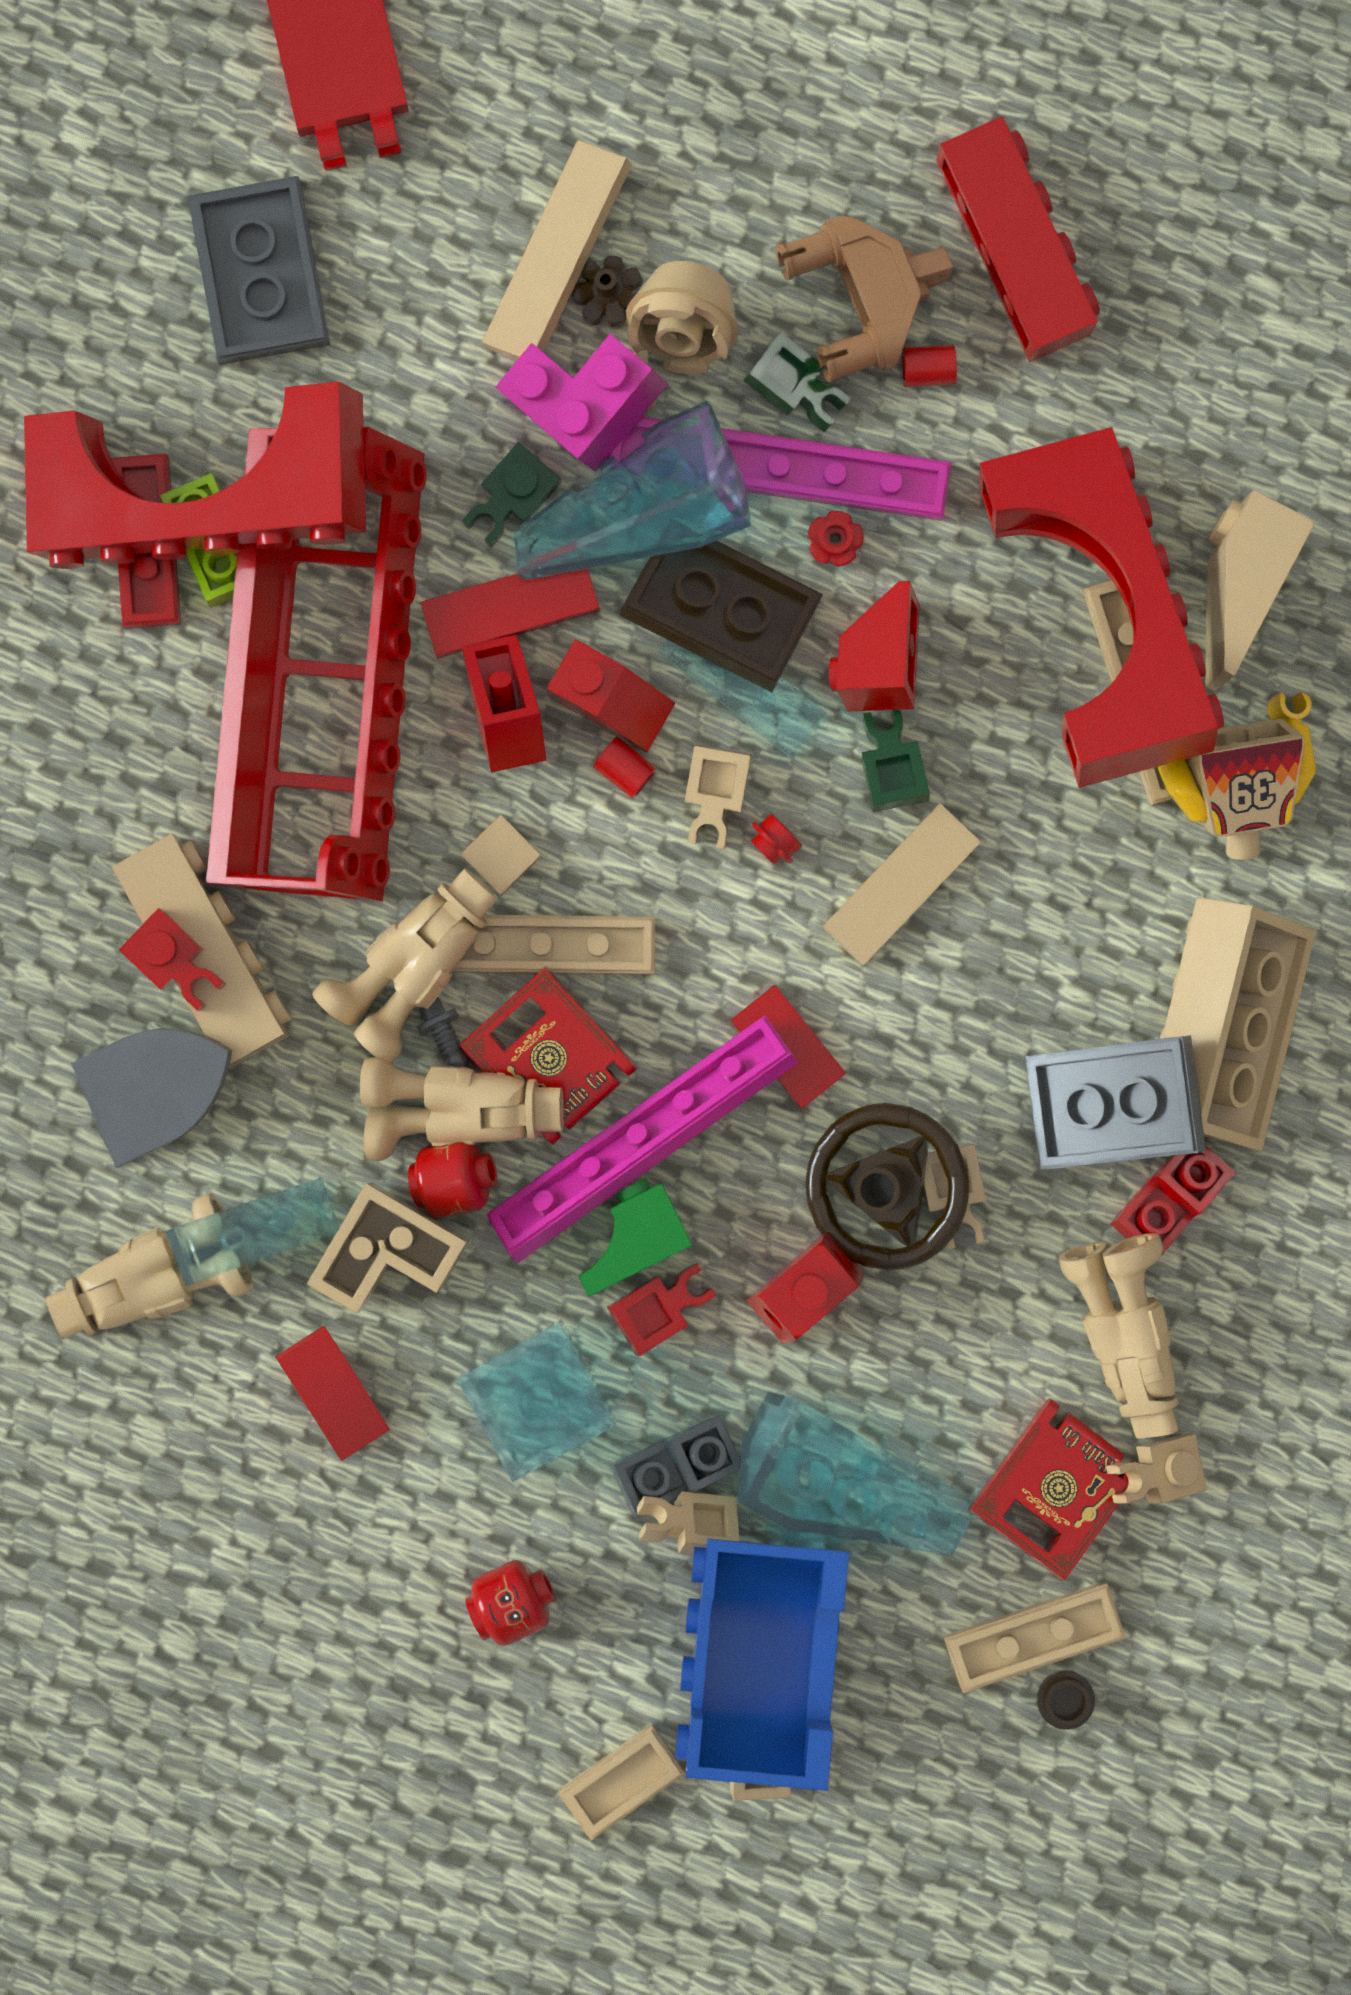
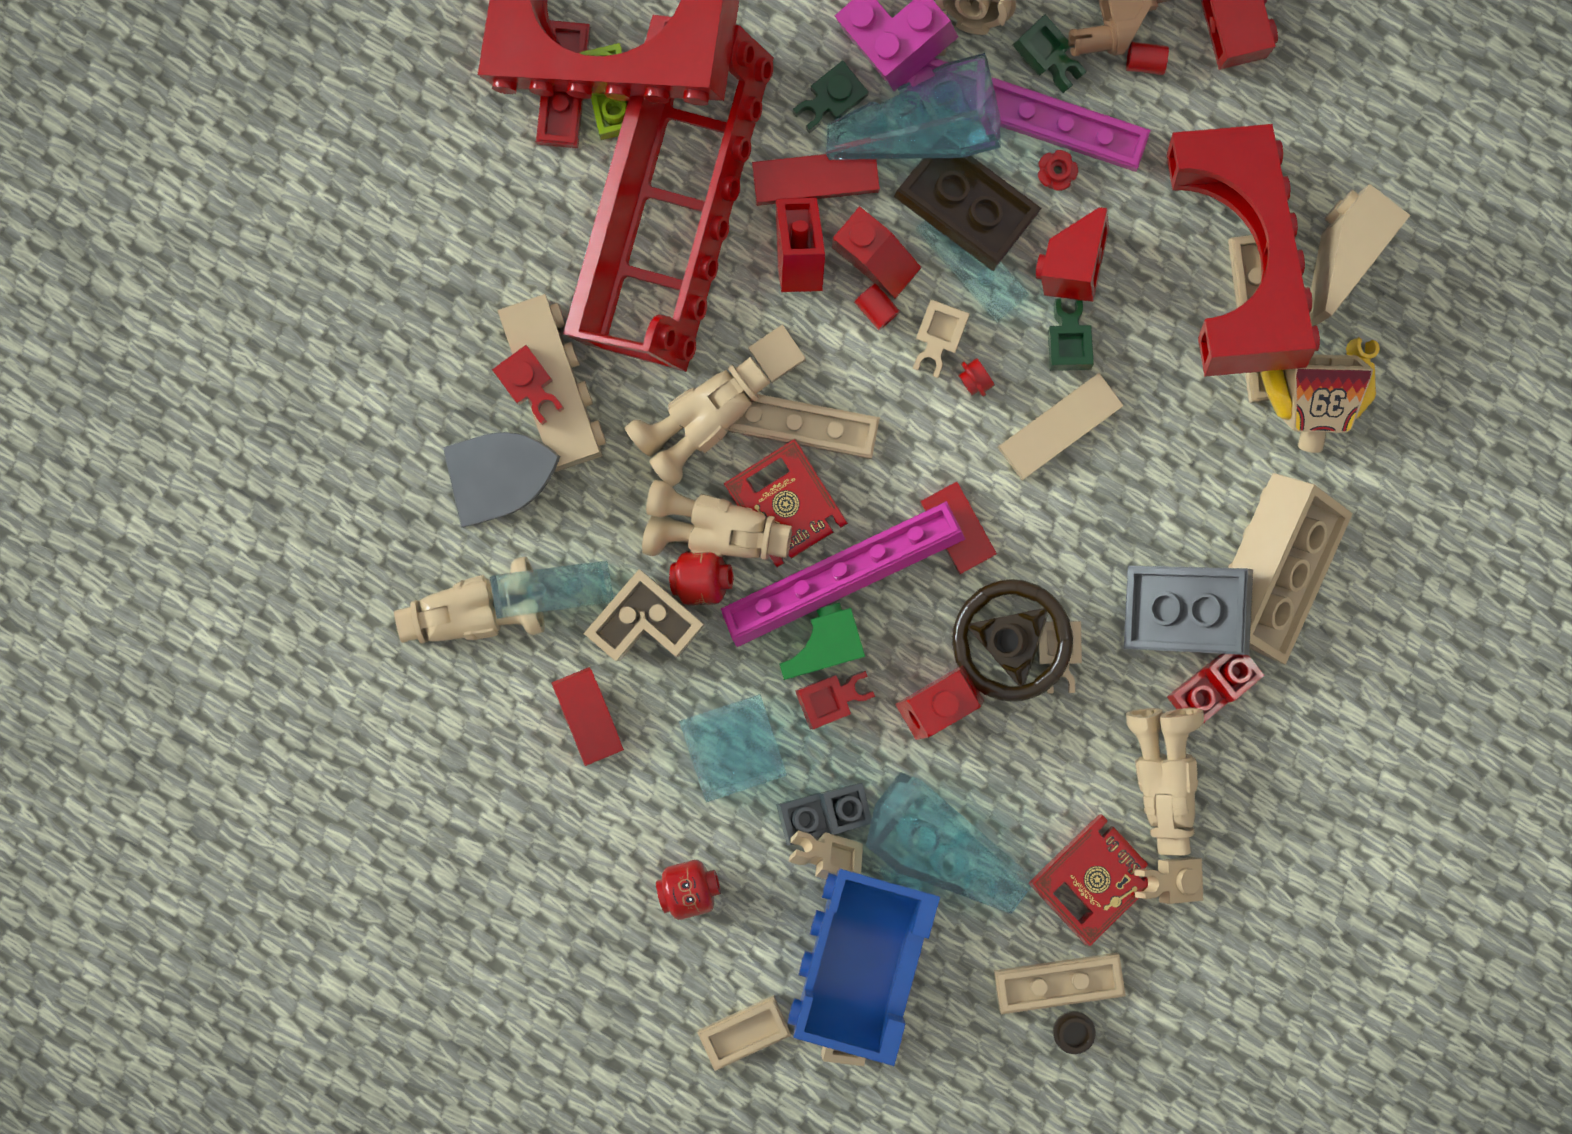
camera: 15 degrees right, 0 degrees up
(439, 1023) = (711, 465): dark grey piece -> none

